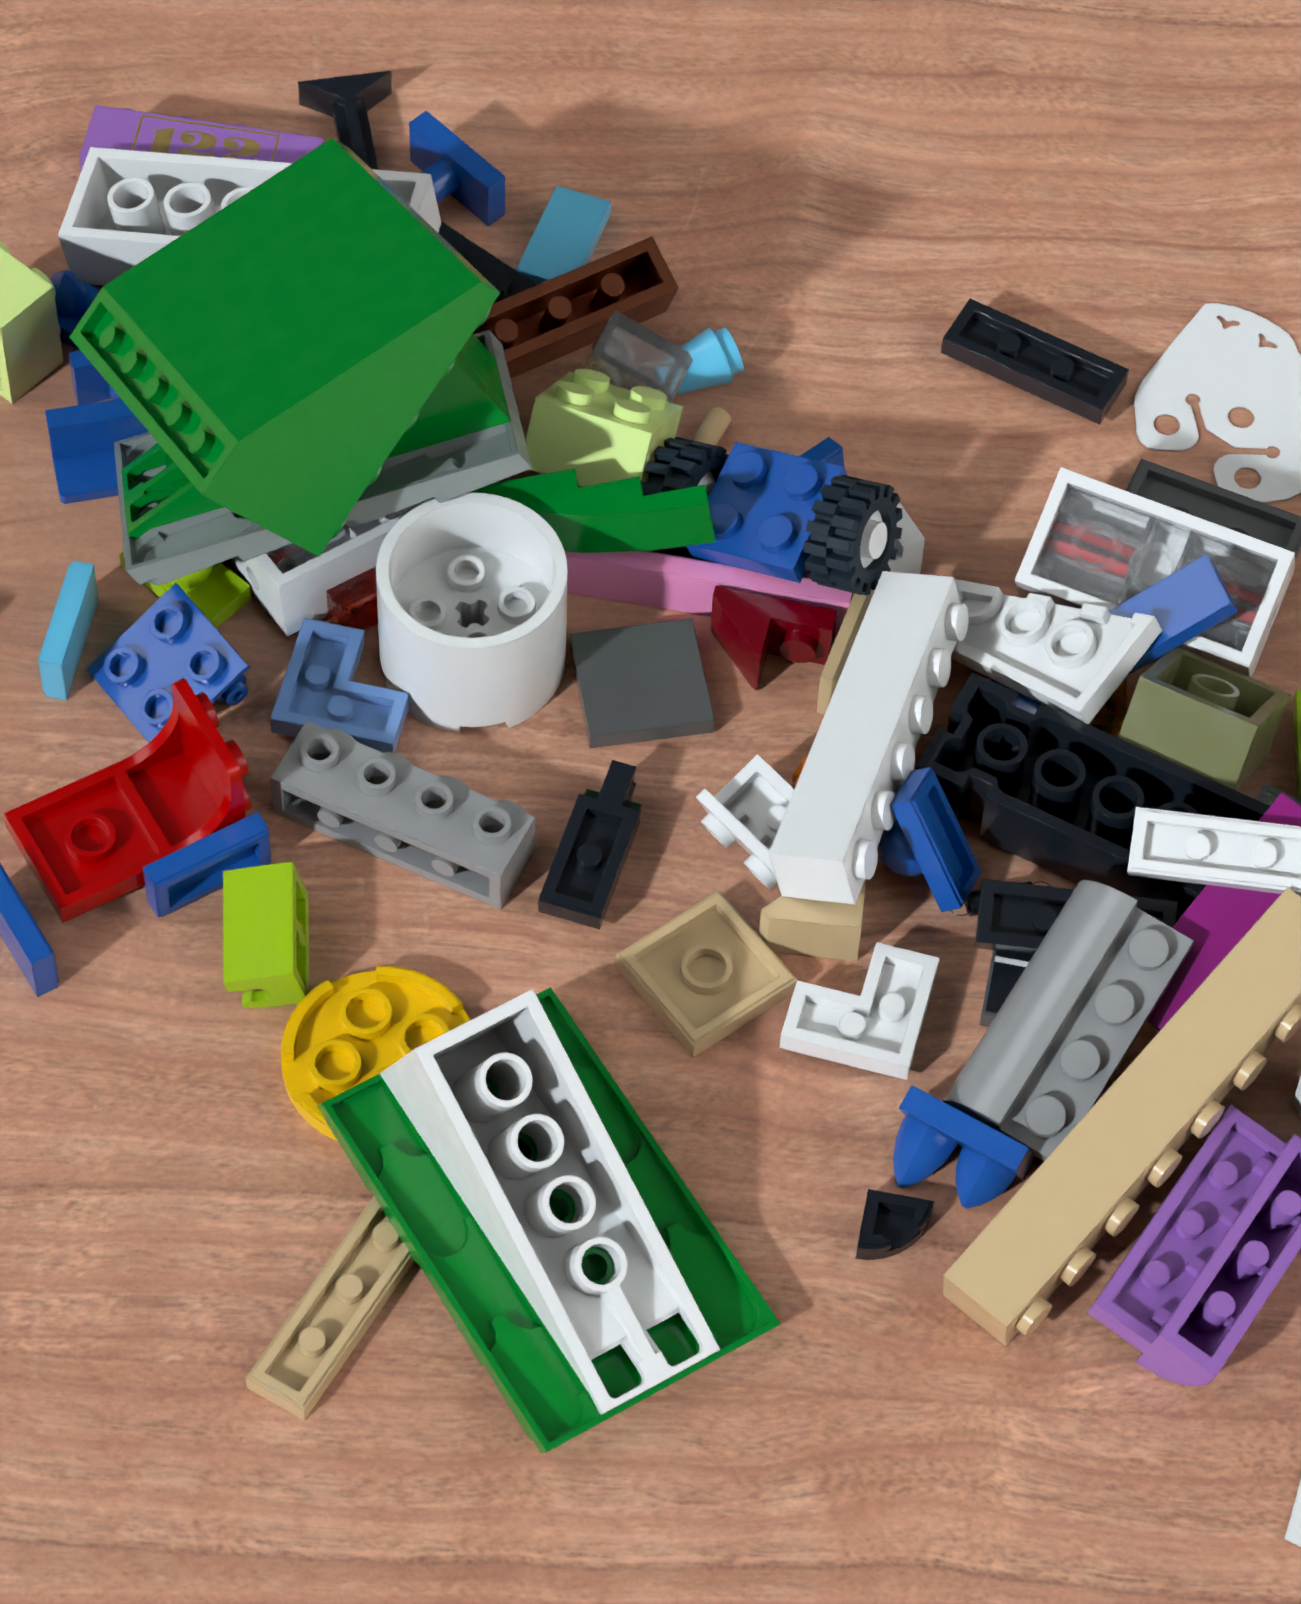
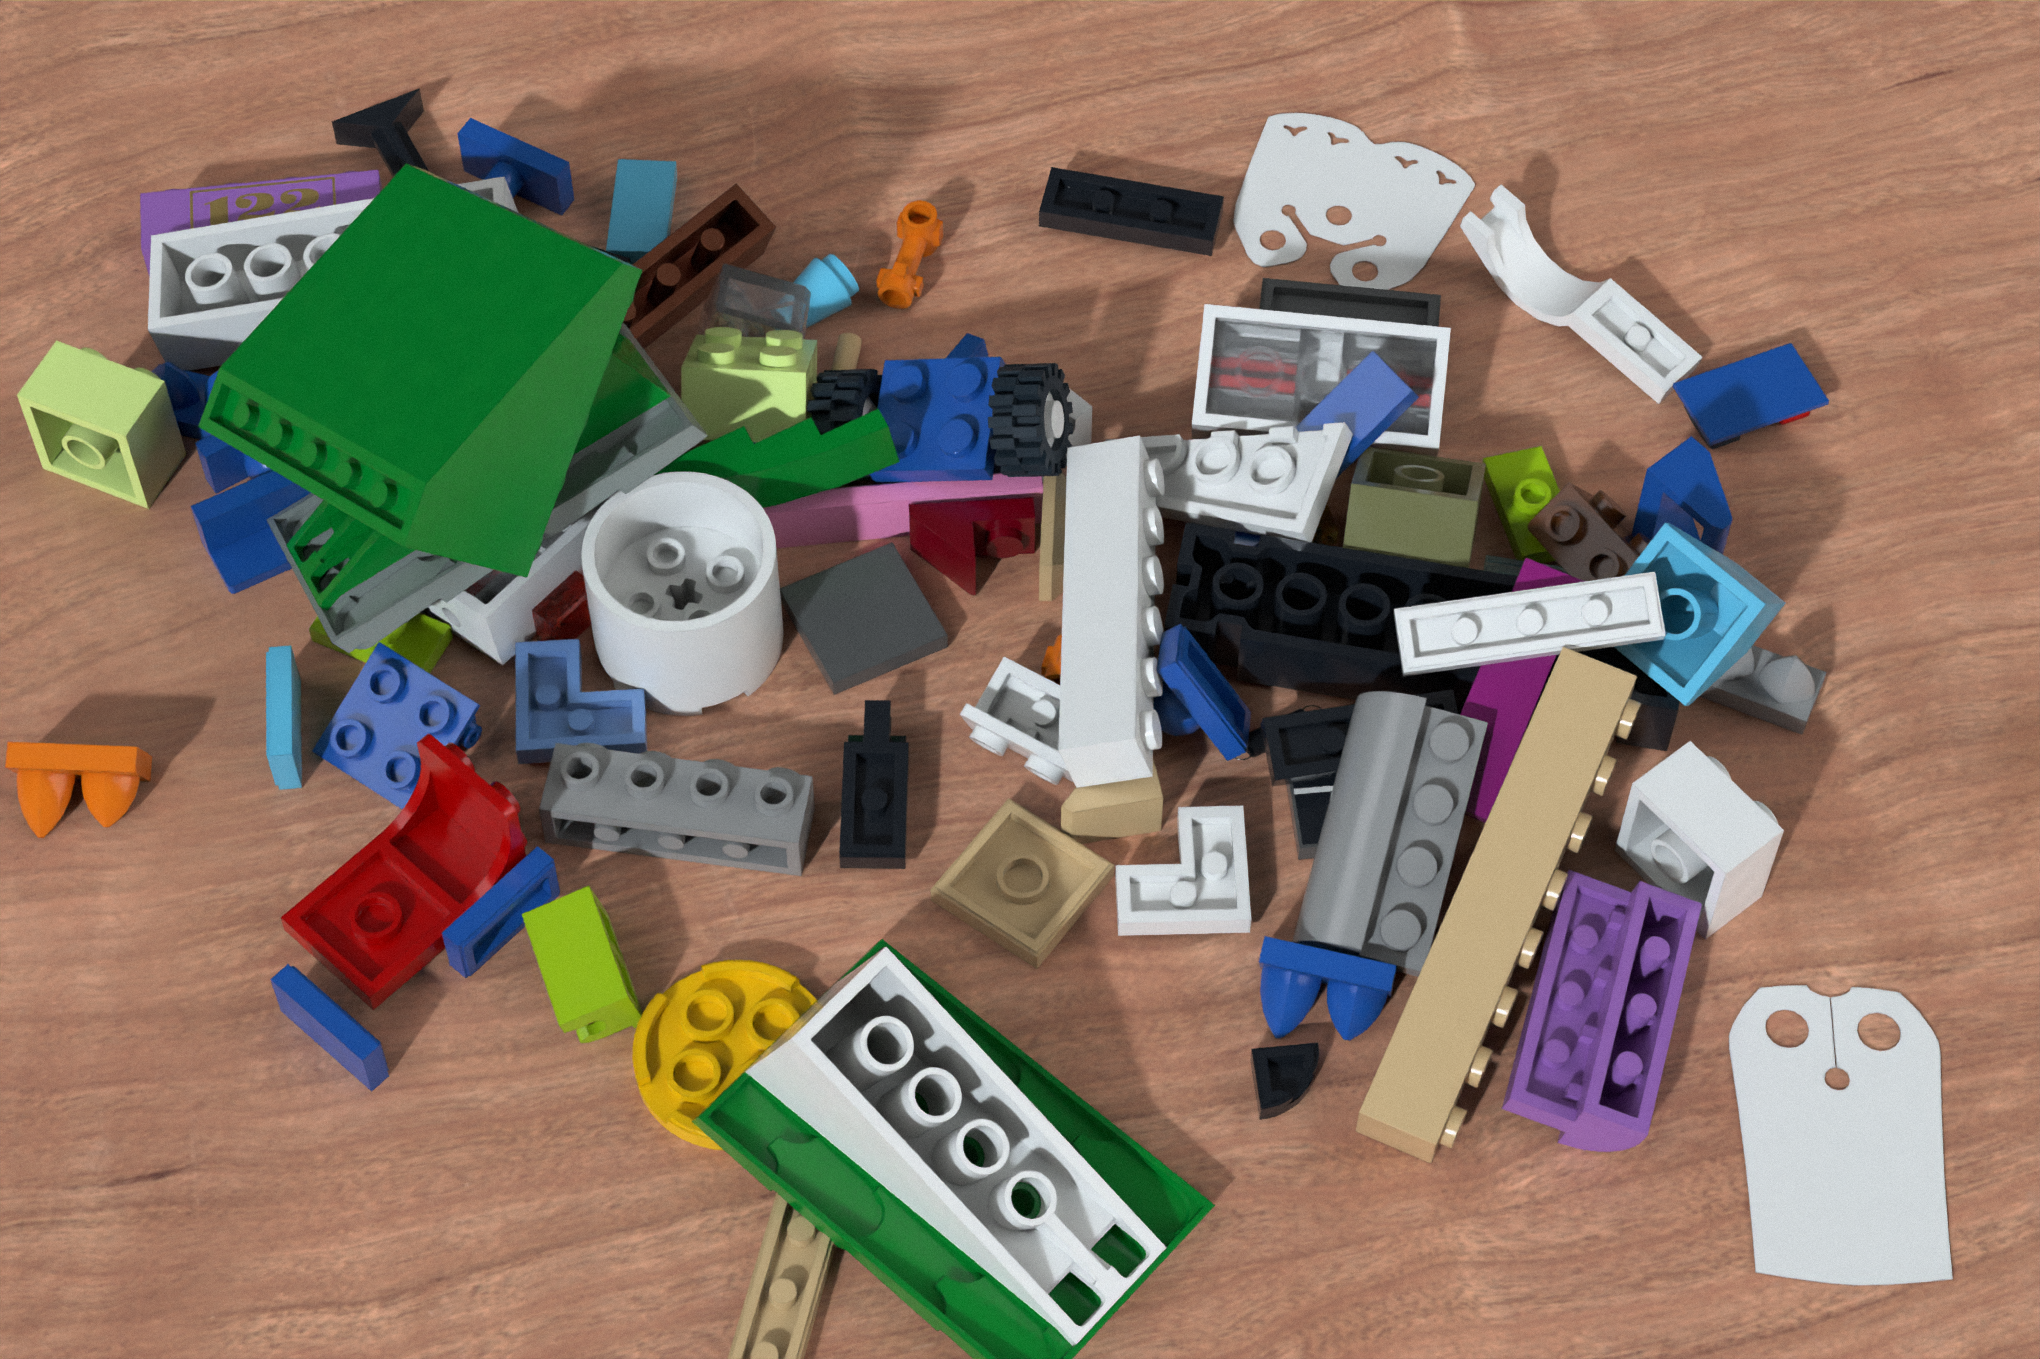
camera: 15 degrees left, 0 degrees up
(821, 335) = (921, 237): none -> orange bar

